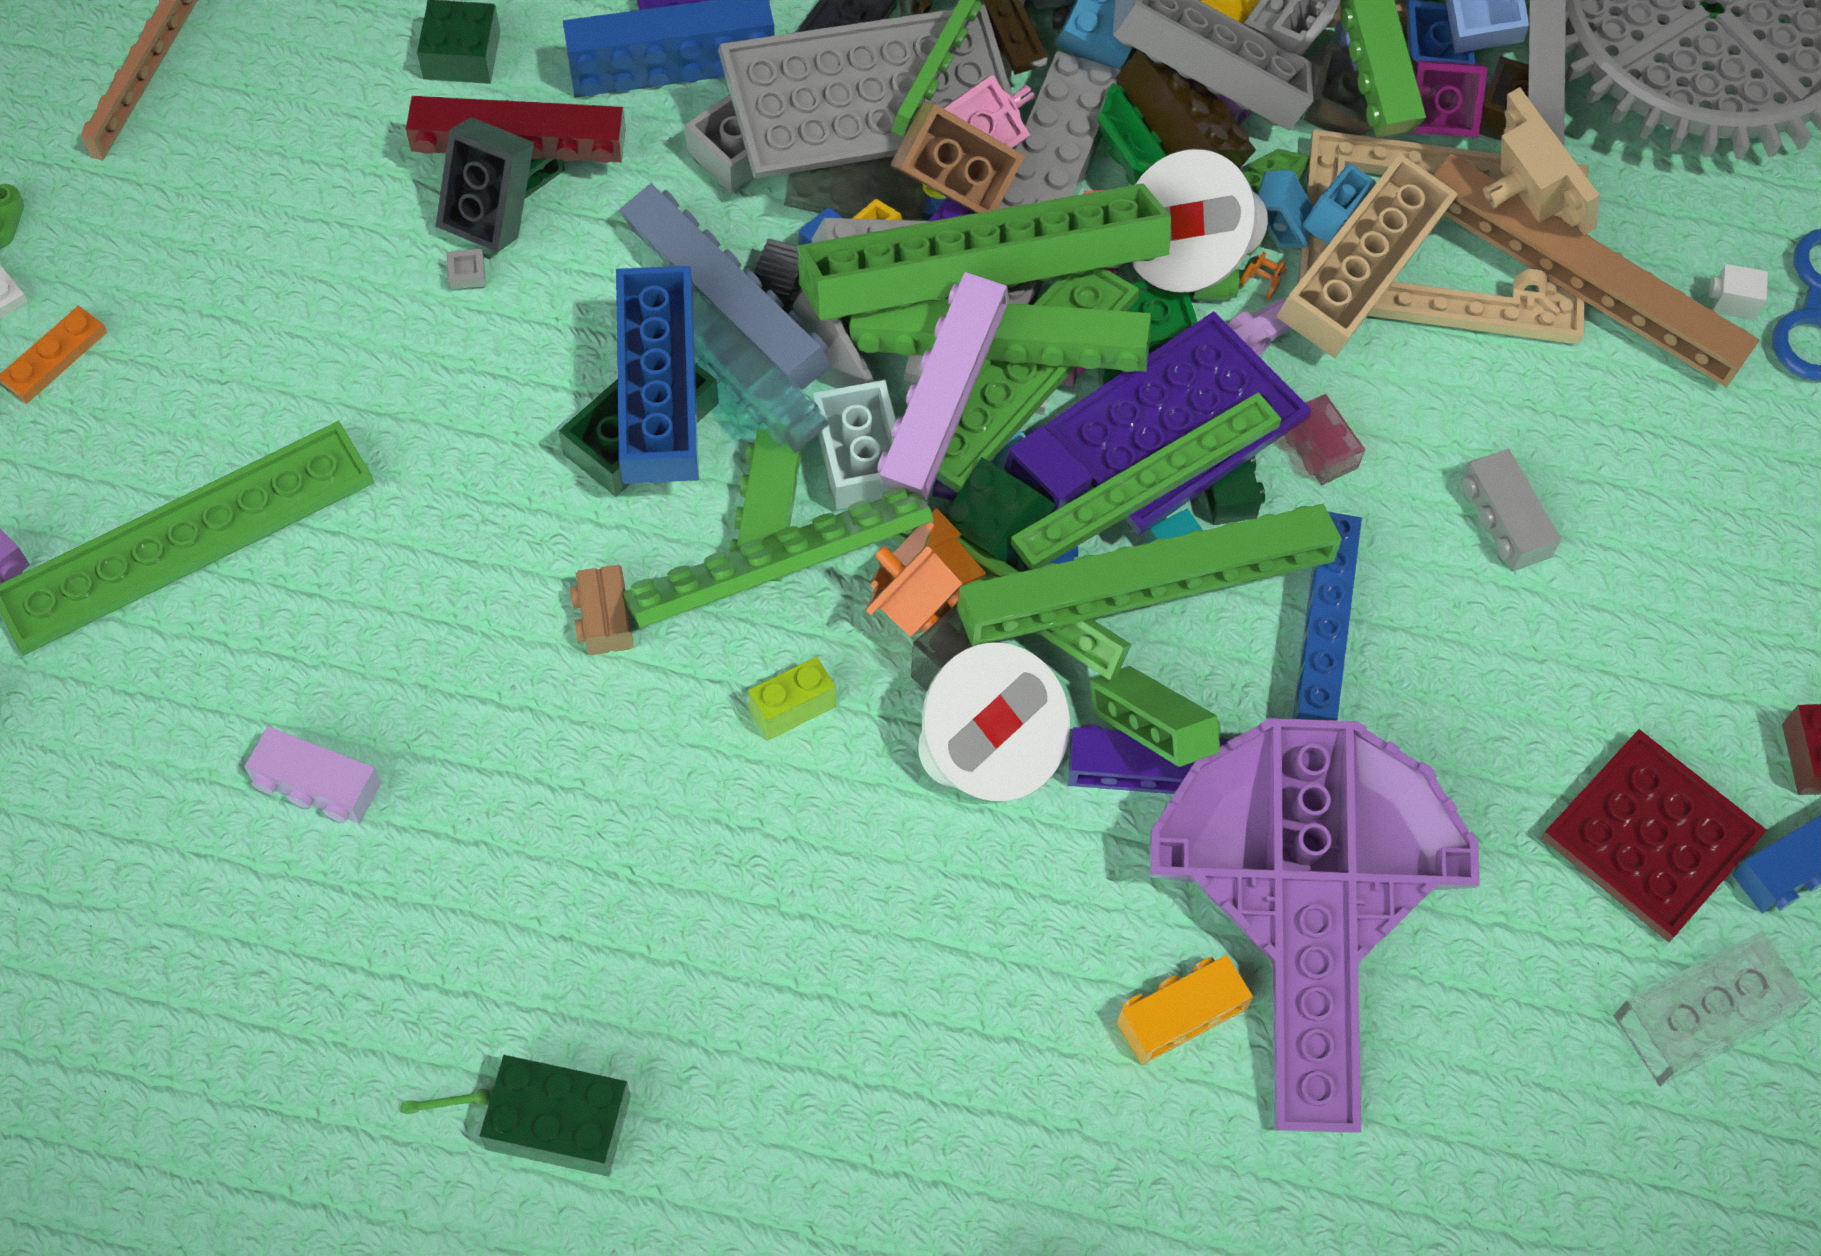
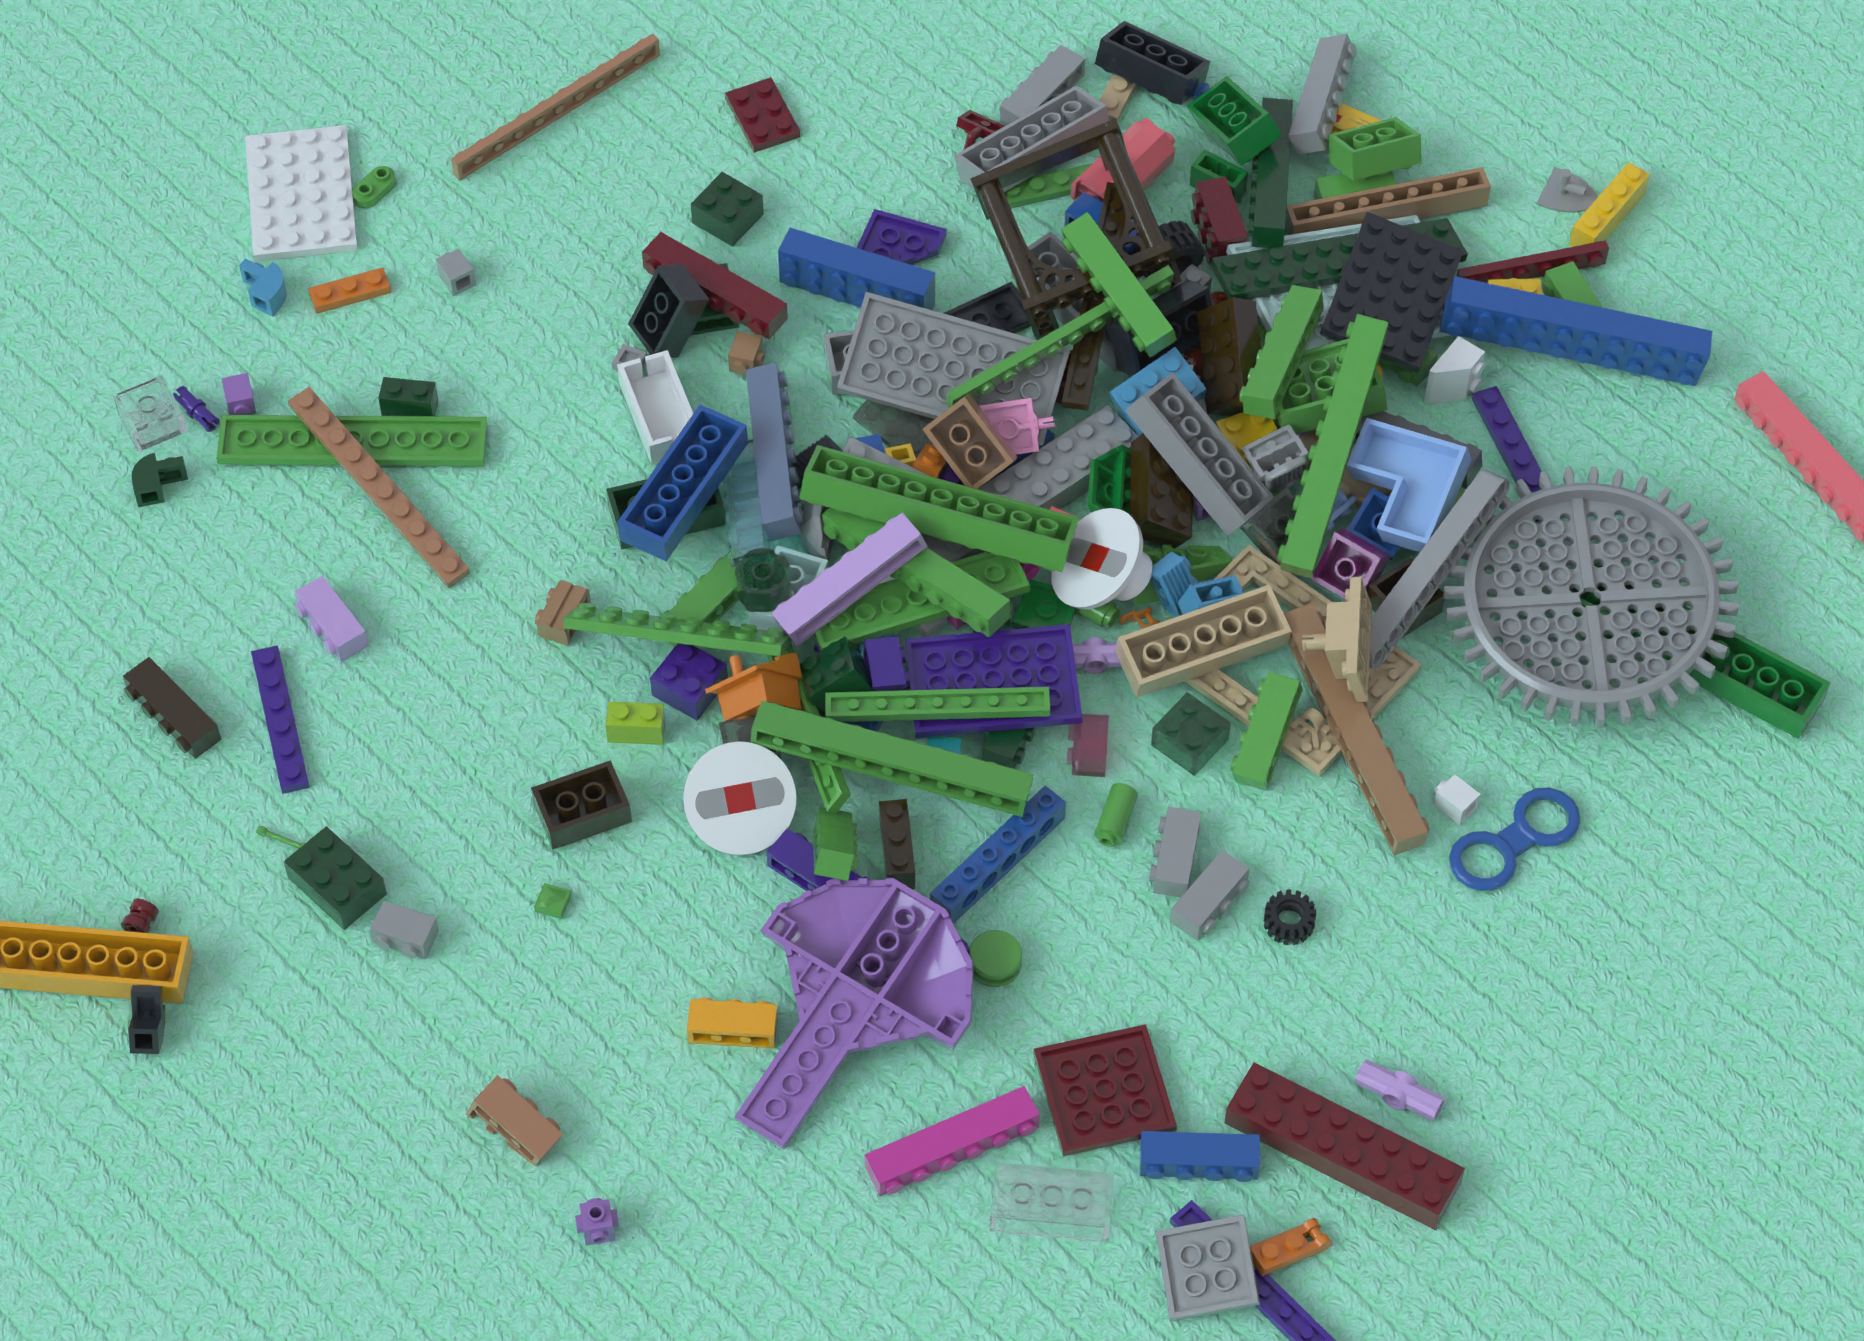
camera: 35 degrees right, 5 degrees down
(175, 1010) = (171, 708): none -> dark brown brick
(177, 267) = (456, 272): none -> light grey brick
(222, 447) = (407, 397): none -> dark green brick
(260, 575) = (379, 487): none -> nougat plate
(332, 944) = (280, 719): none -> dark purple plate
(545, 303) = (655, 402): none -> white piece
(601, 193) = (745, 353): none -> medium nougat brick
(694, 1133) = (404, 930): none -> light grey brick
(804, 838) = (581, 804): none -> dark brown brick
(817, 611) = (685, 676): none -> dark purple brick
(839, 441) = (763, 580): none -> clear green brick
(849, 981) = (552, 901): none -> bright green tile
(917, 204) = (930, 461): none -> orange plate
(1206, 674) = (897, 841): none -> dark brown brick
(1413, 503) = (1116, 814): none -> bright green brick
(1420, 368) = (1190, 733): none -> clear green brick
(1421, 737) = (995, 958): none -> bright green head
(1503, 320) = (1266, 731): none -> bright green brick
(1543, 1003) = (952, 1141): none -> dark pink brick
(1586, 540) = (1210, 895): none -> light grey brick
(1688, 500) = (1289, 931): none -> black tyre

